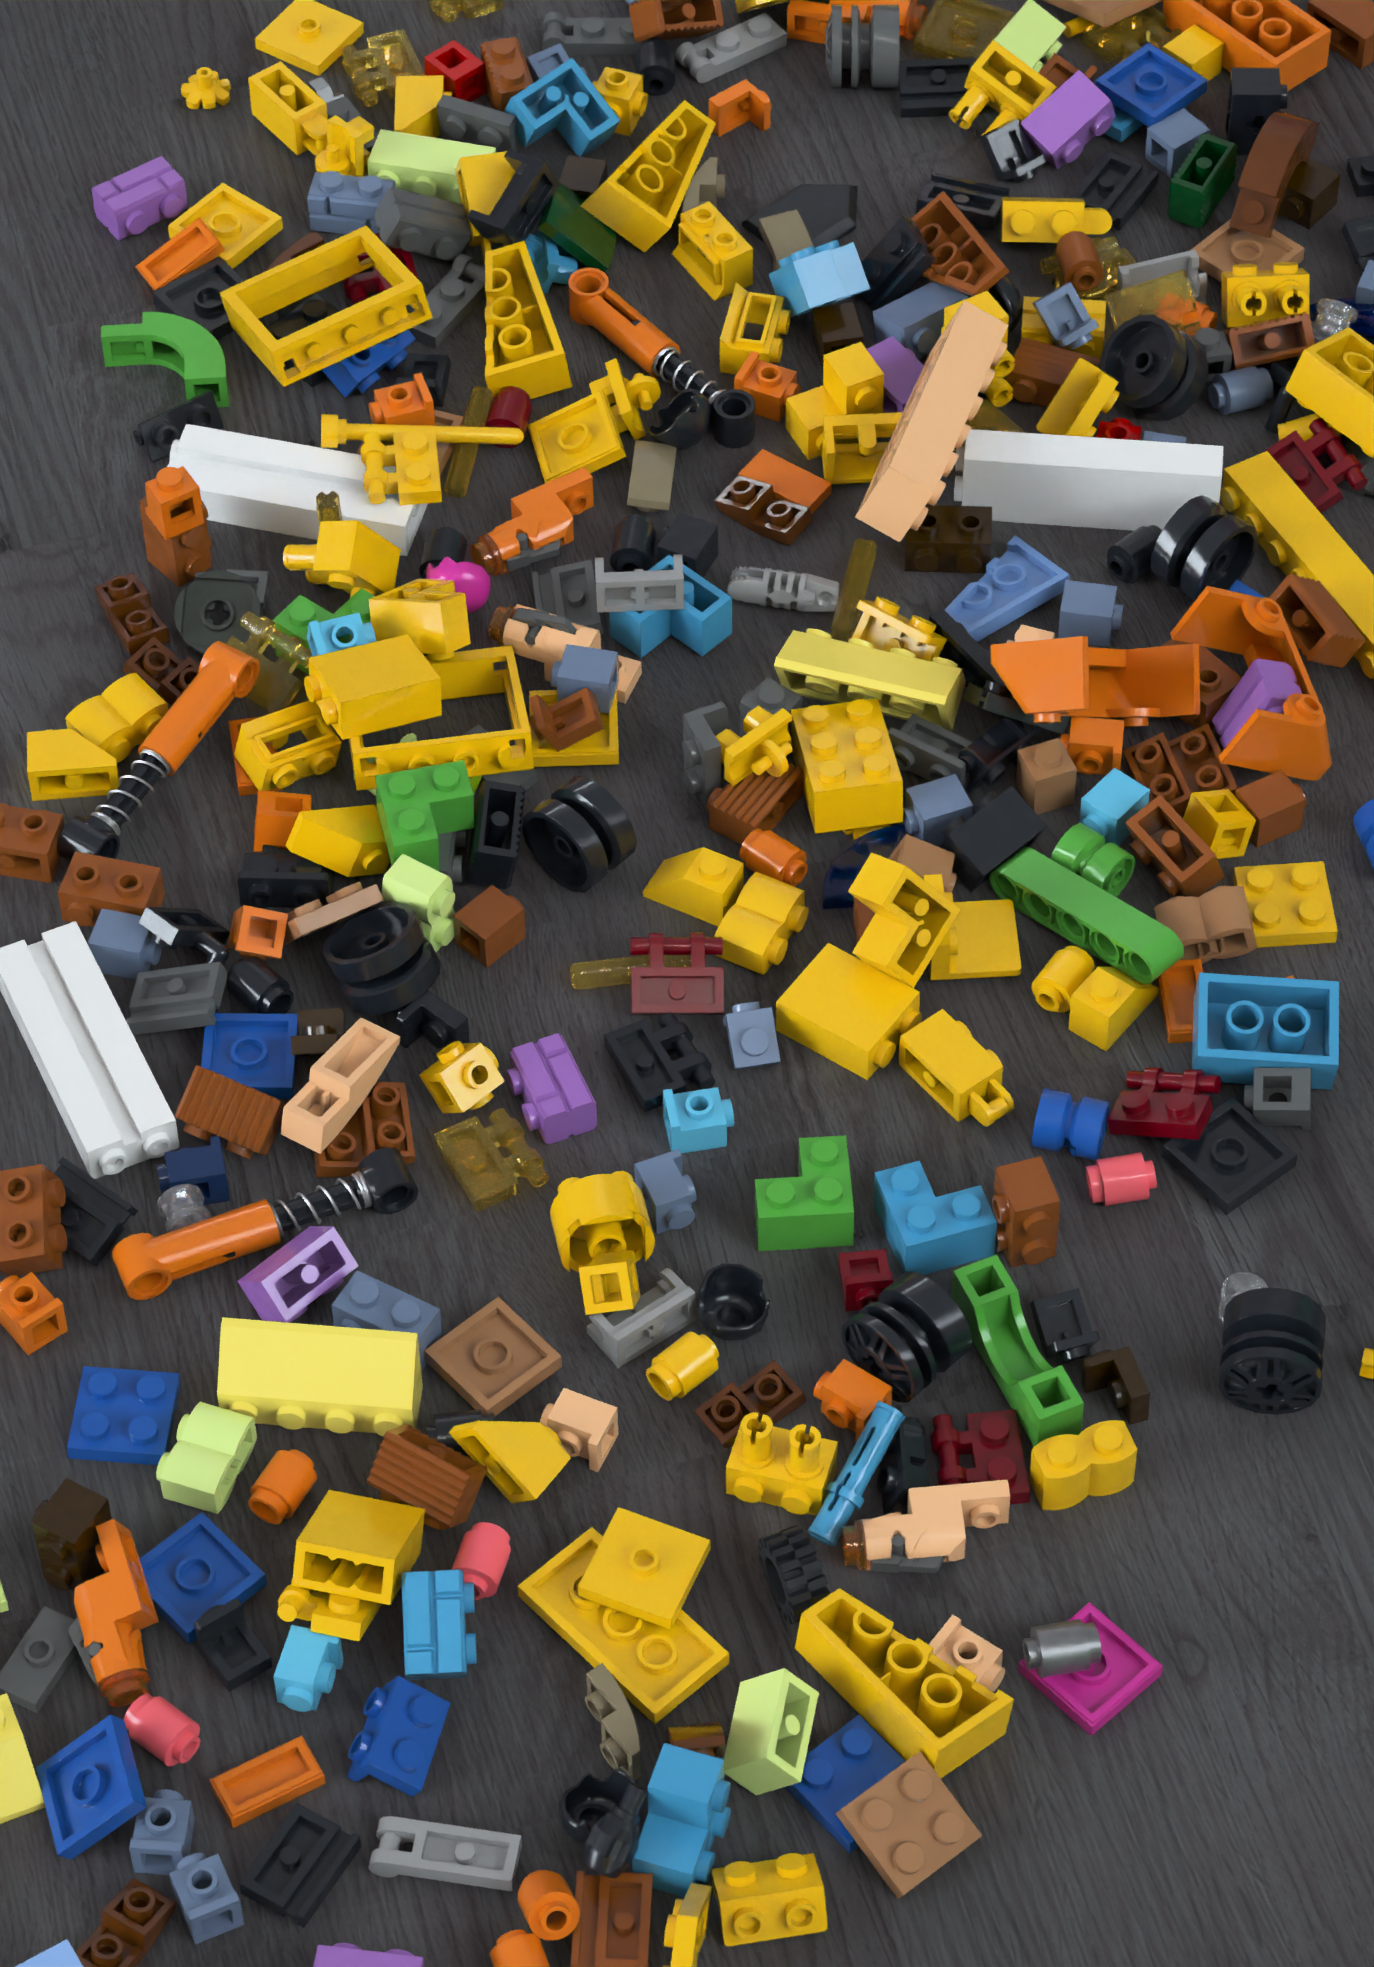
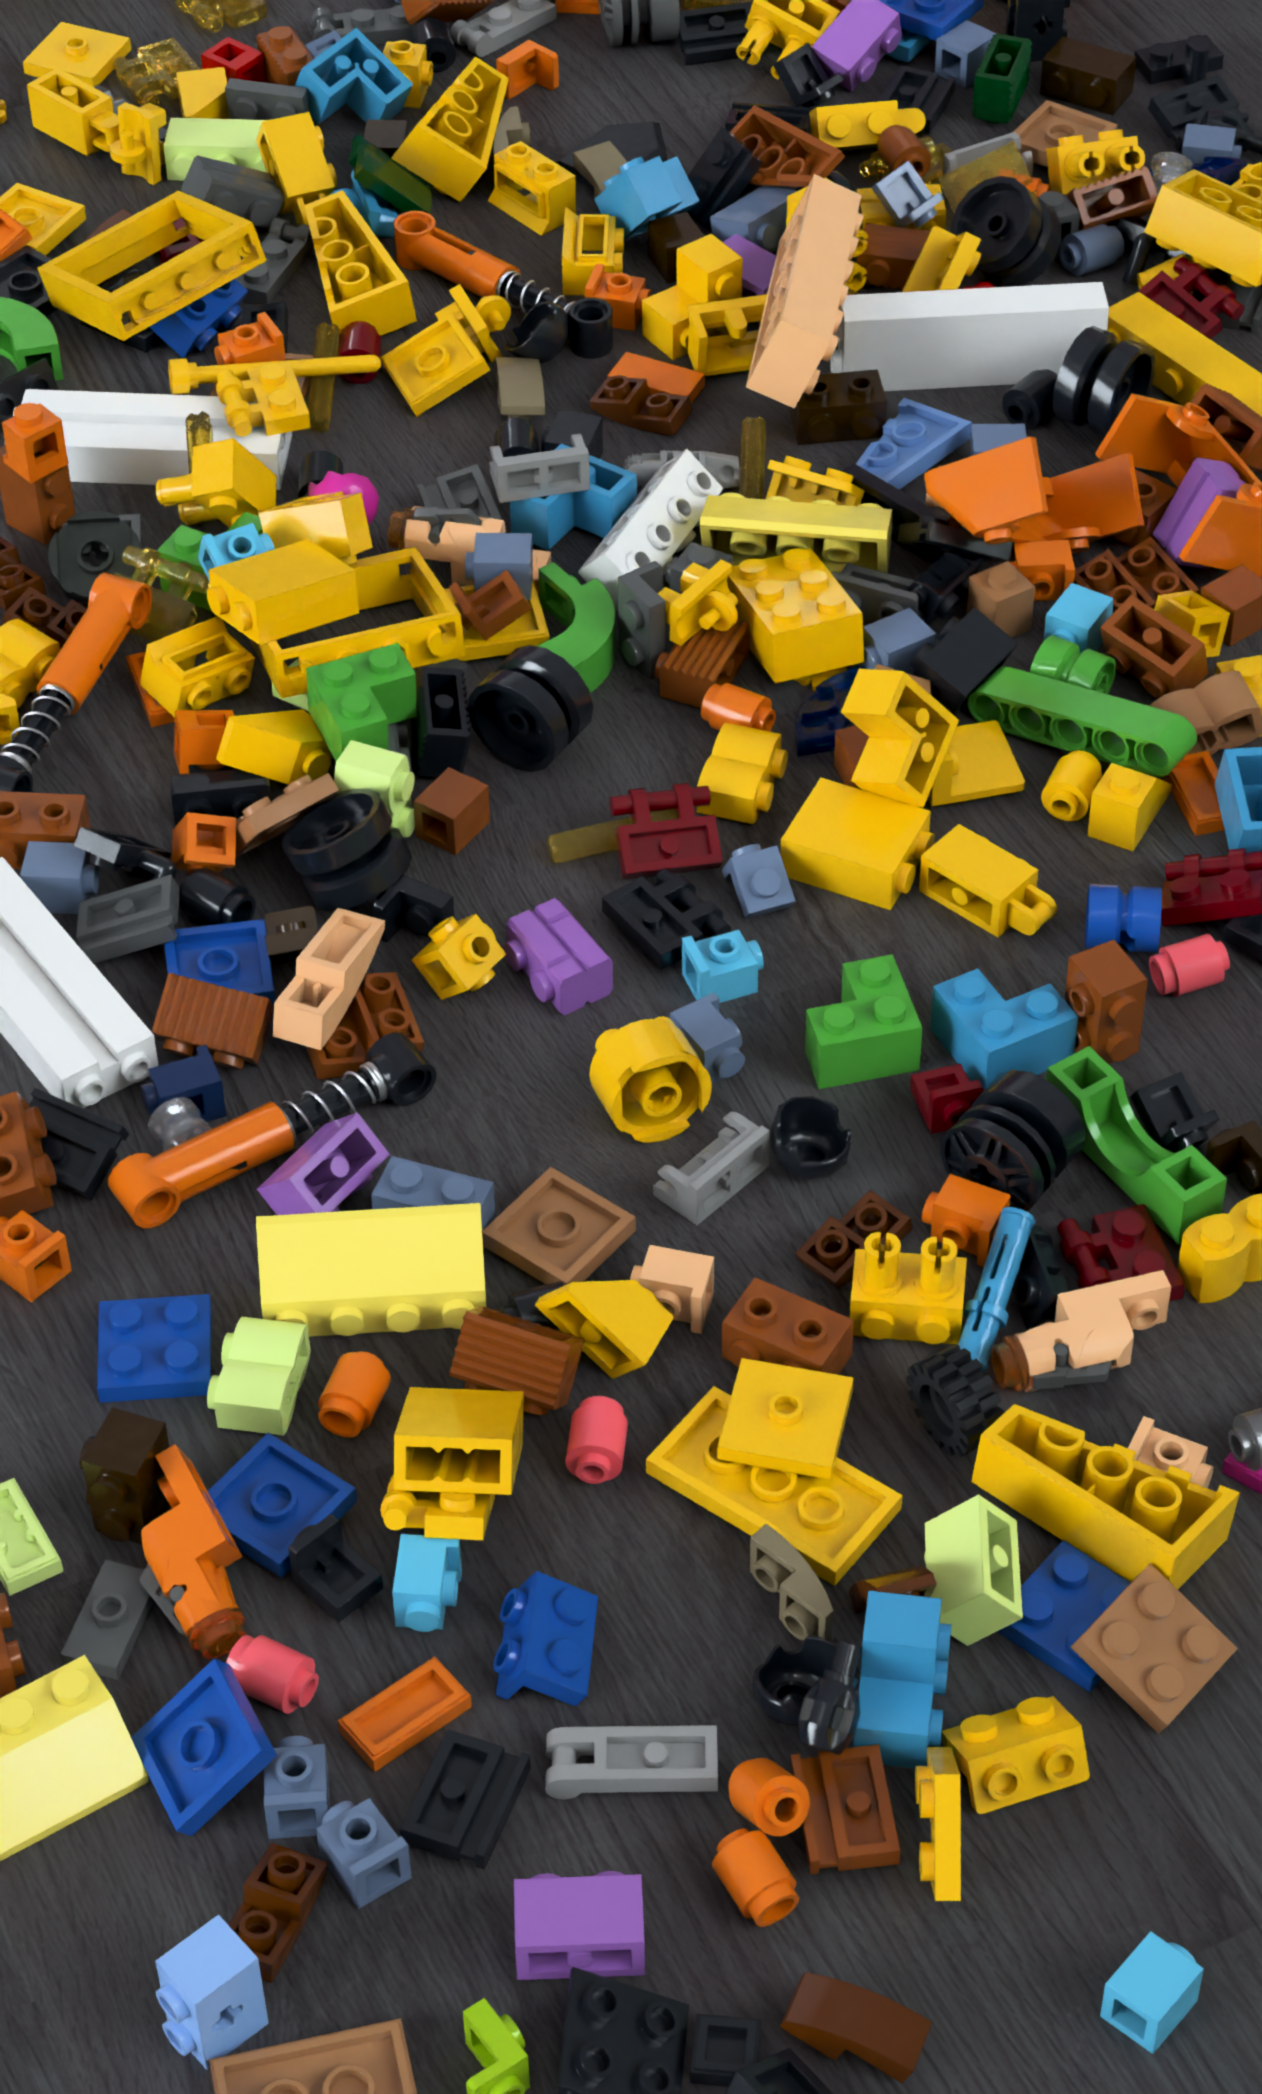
camera: 10 degrees left, 5 degrees down
(345, 201) = (144, 181): sand blue brick -> none
(436, 1624) = (566, 1510): dark azure brick -> none
(478, 1164) = (497, 1043): clear yellow plate -> none
(520, 202) = (332, 155): black panel -> none
(538, 524) = (412, 440): orange plate -> none
(610, 1283) = (673, 1133): yellow brick -> none
(653, 770) = (589, 620): none -> bright green arch
(666, 1487) = (786, 1331): none -> dark orange brick
(683, 1366) = (771, 1209): yellow brick -> none
(698, 884) = (665, 745): yellow slope -> none
(738, 650) = (654, 523): none -> white brick
(1270, 164) = (1070, 58): reddish brown arch -> none

